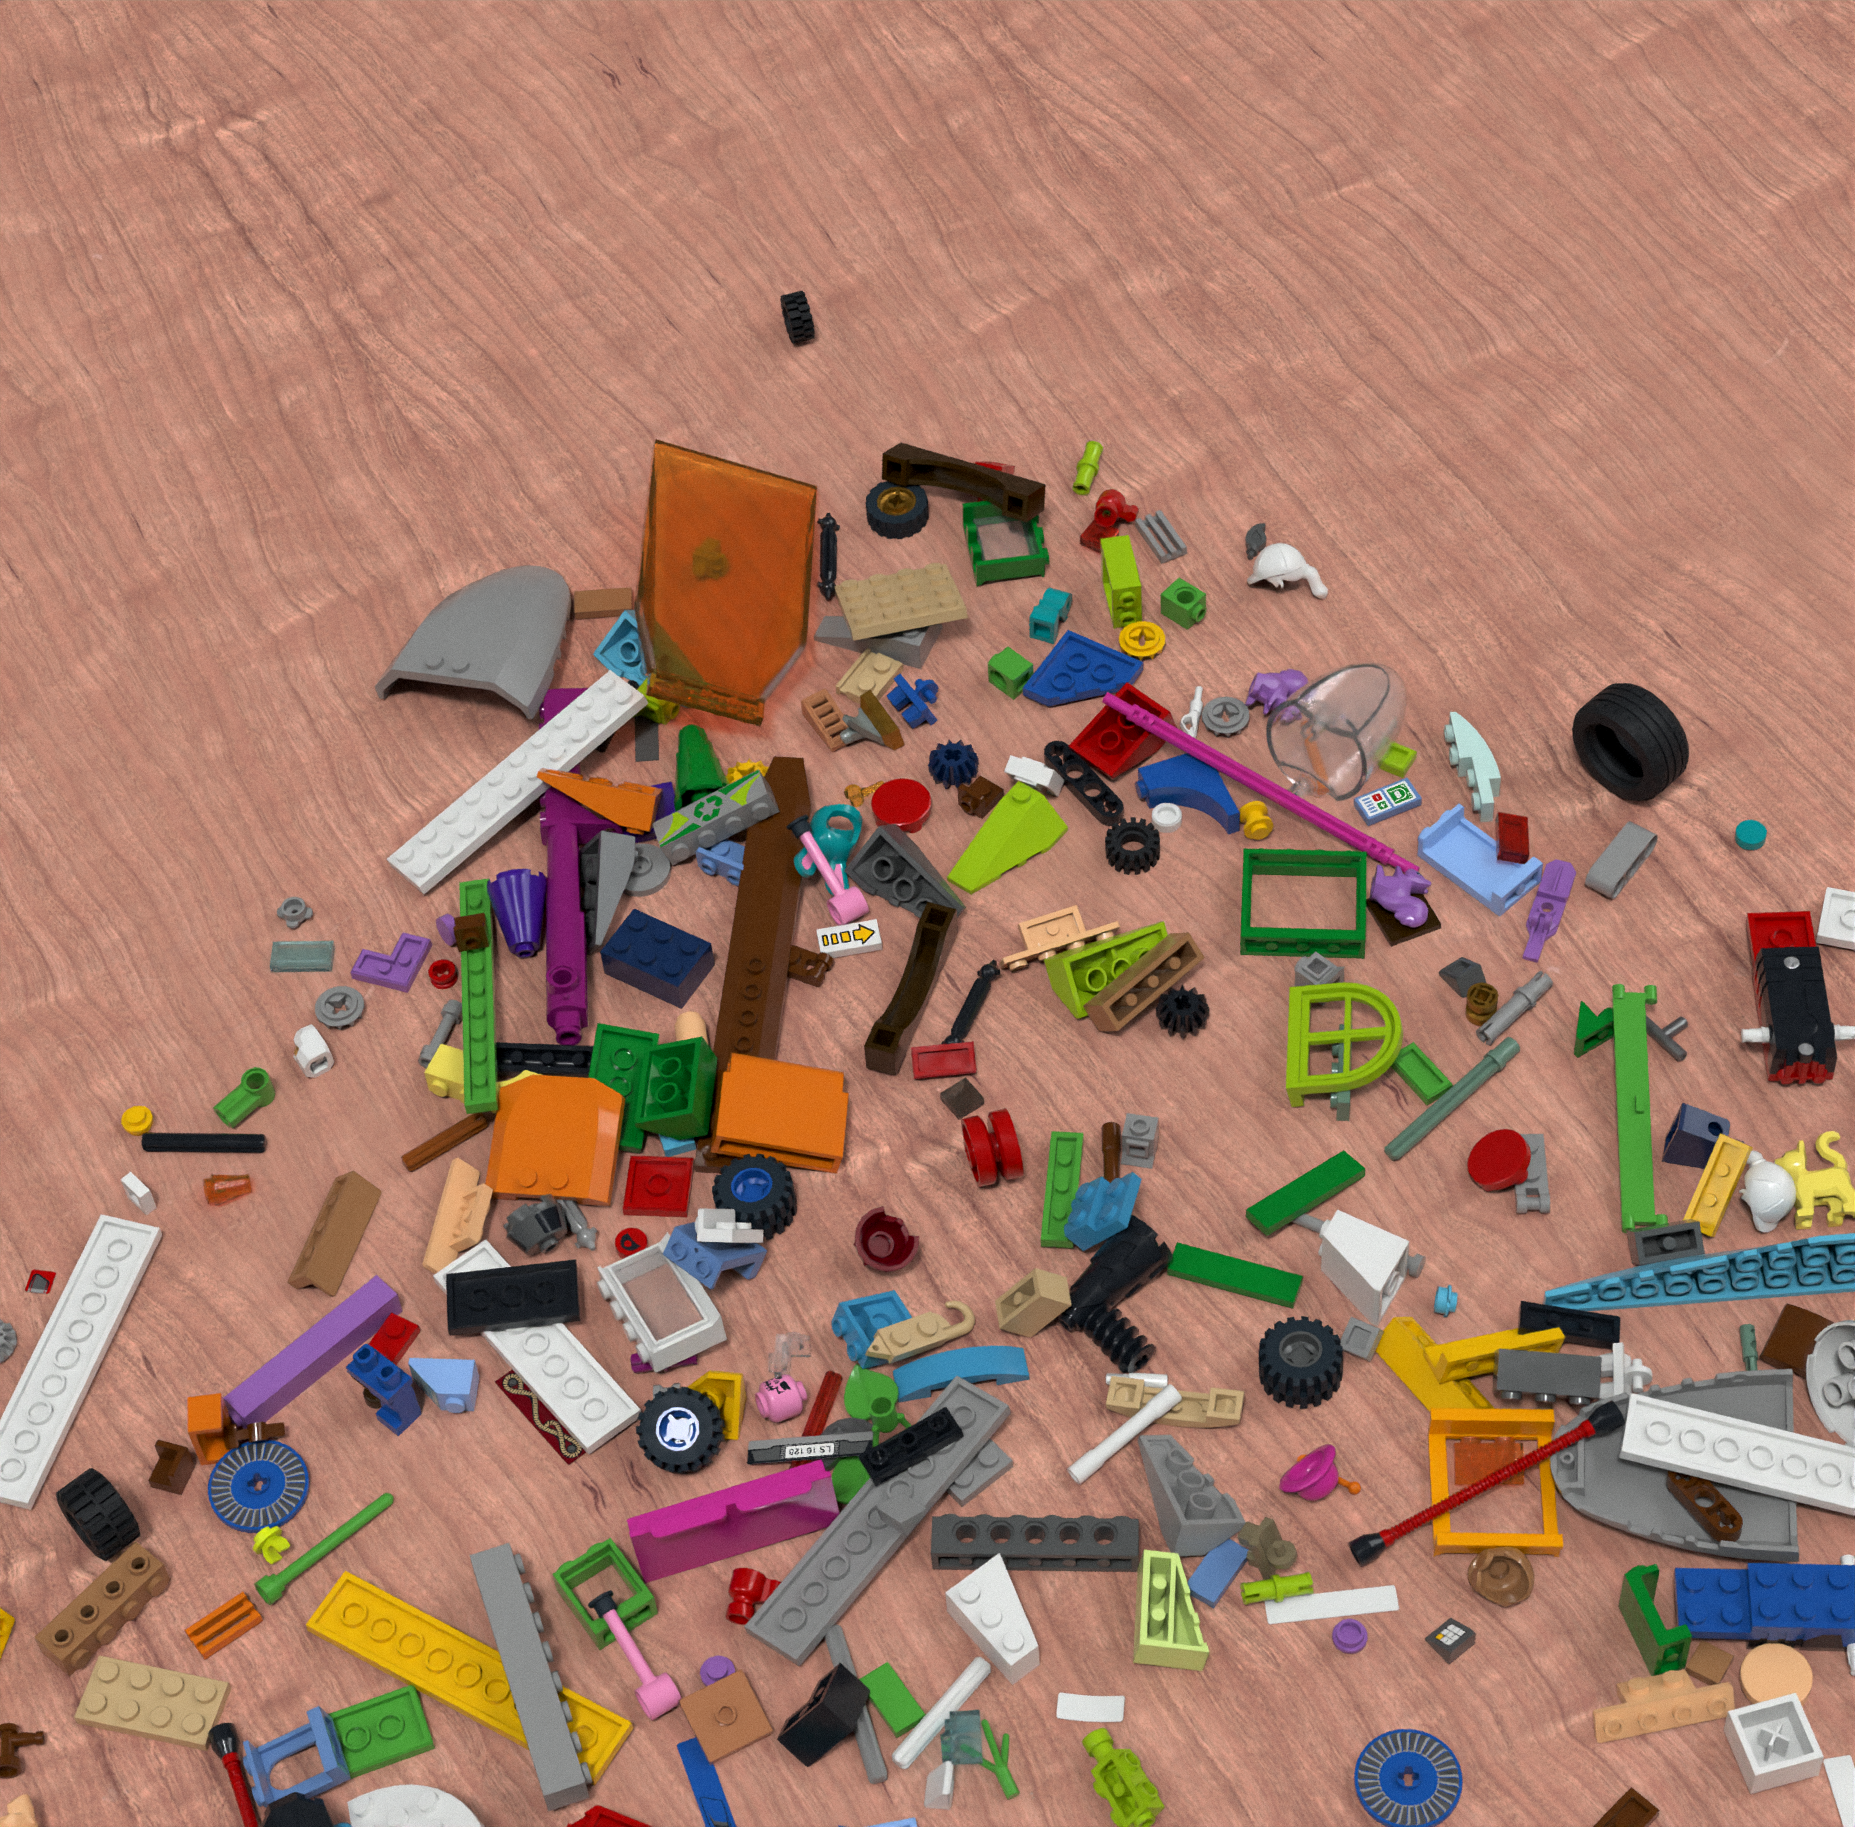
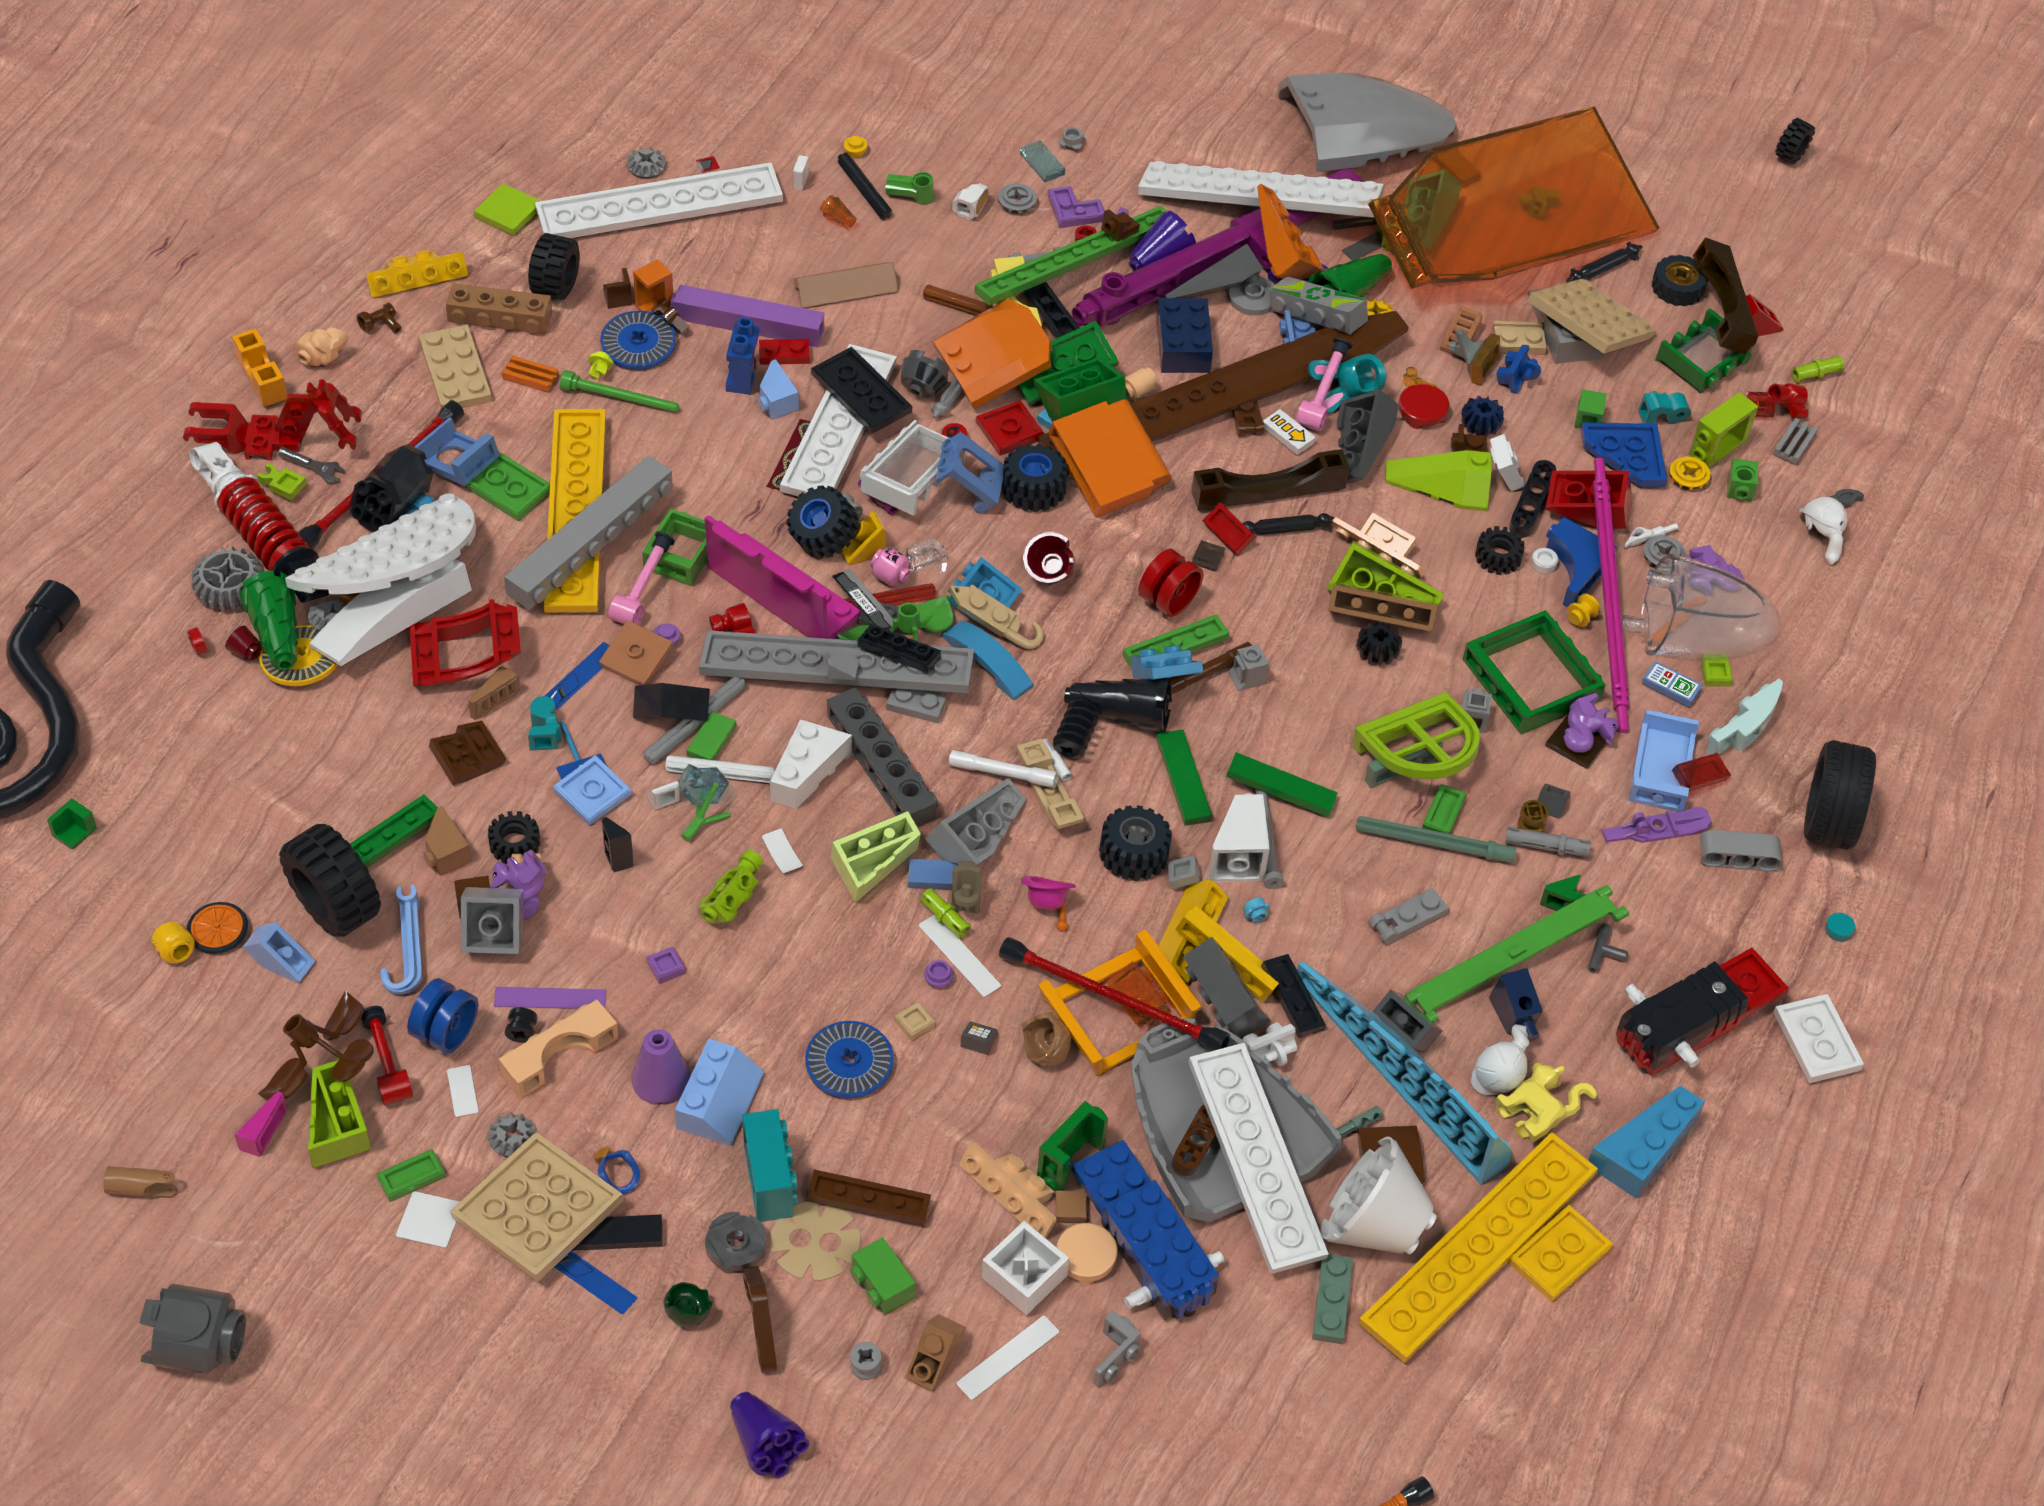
camera: 50 degrees right, 0 degrees up
(458, 1216) = (903, 333): light nougat bracket -> none
(720, 1226) = (984, 461): white bracket -> none
(1033, 1302) = (1062, 663): tan brick -> none
(1394, 1691) = (914, 1021): none -> tan tile
(1499, 1160) = (1400, 888): red tile -> none
(1718, 1183) = (1481, 1030): yellow plate -> none

